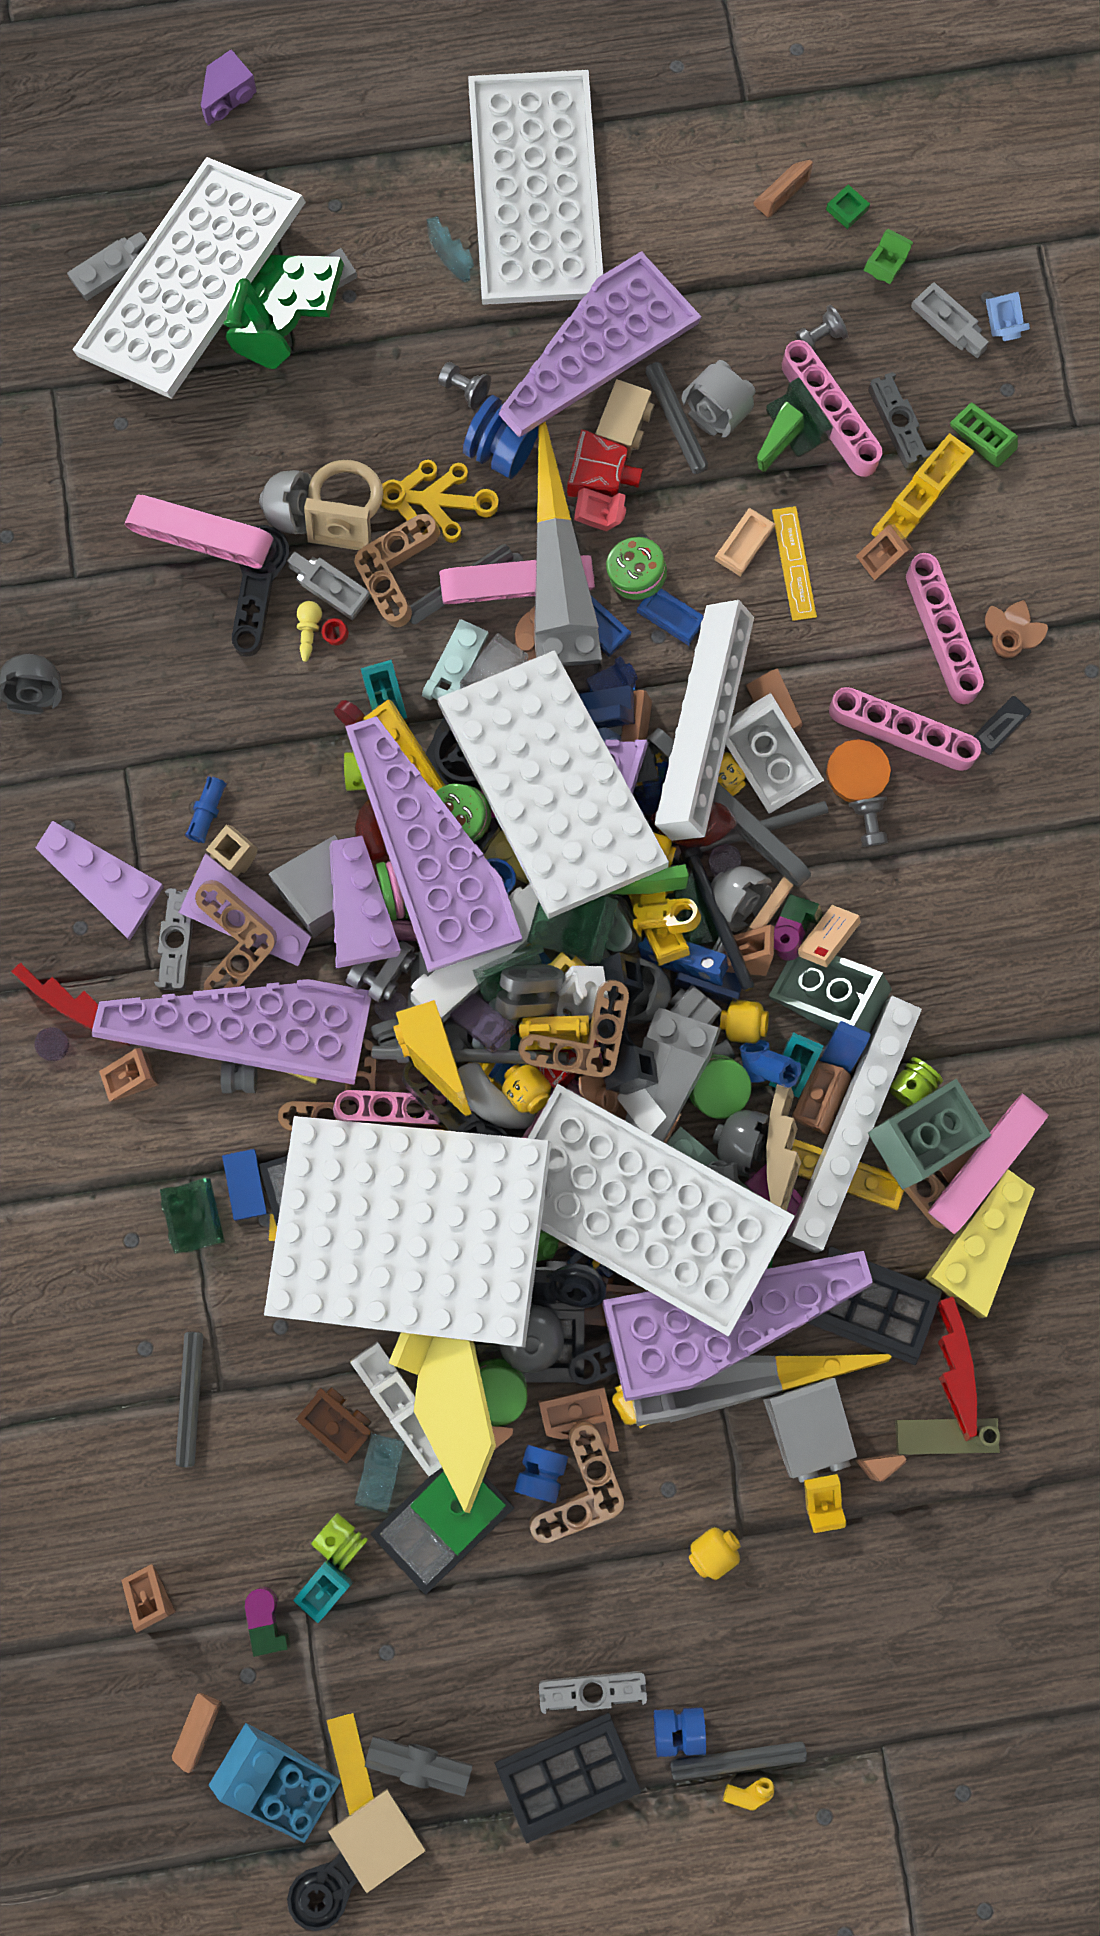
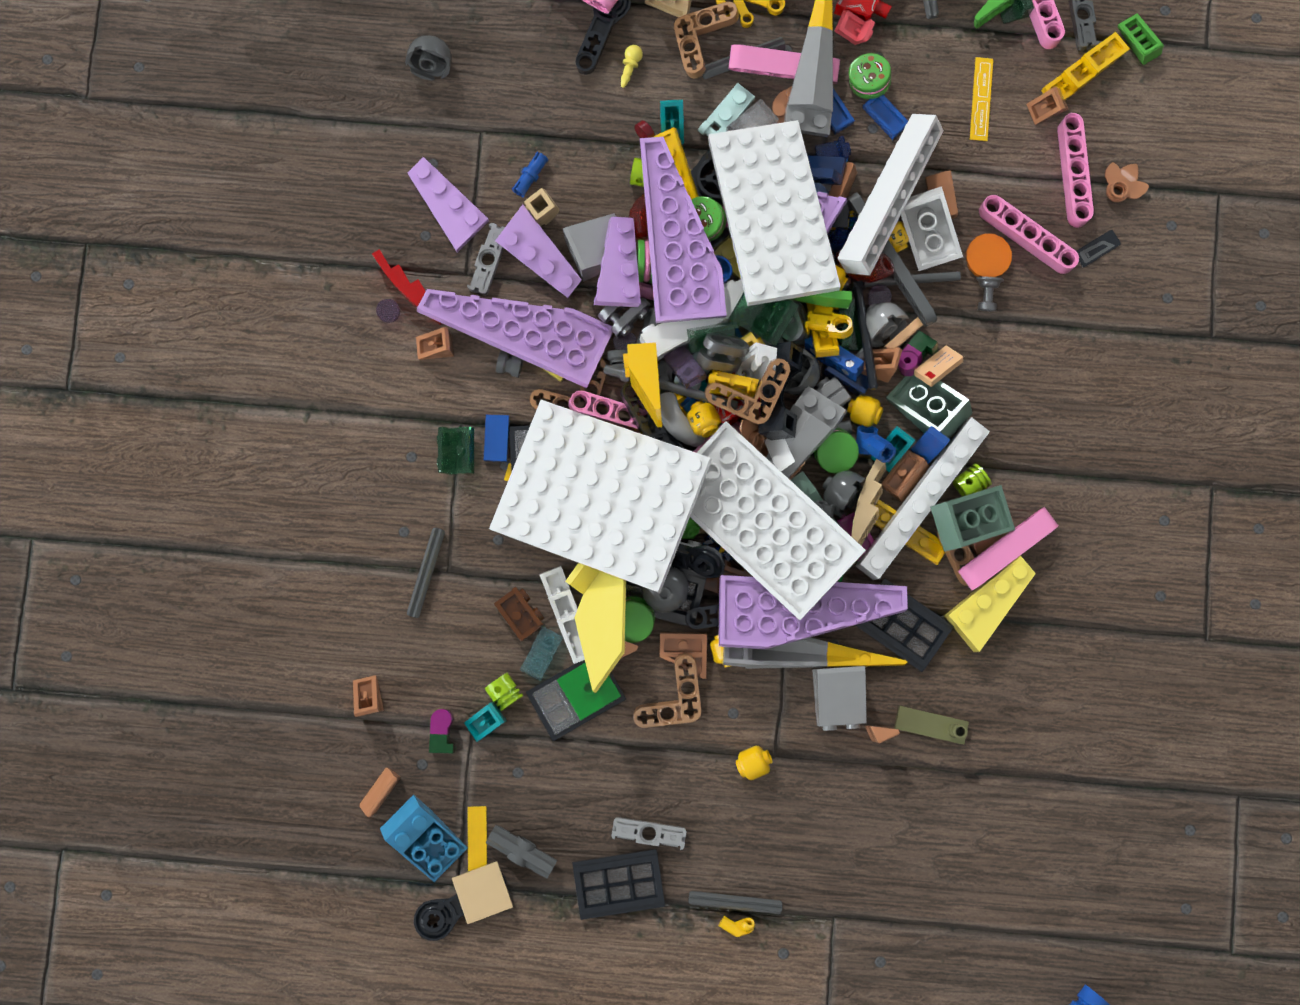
camera: 15 degrees right, 5 degrees up
(243, 934) = (535, 266): medium nougat beam -> none
(329, 584) = (652, 37): light grey hinge -> none
(329, 632) = (644, 71): red hinge -> none
(541, 1474) = (650, 680): blue wheel -> none
(692, 1730) = (709, 873): blue wheel -> none
(744, 542) = (950, 75): light nougat tile -> none
(824, 1503) = (836, 748): yellow bracket -> none
(960, 1380) = (949, 690): red slope -> none

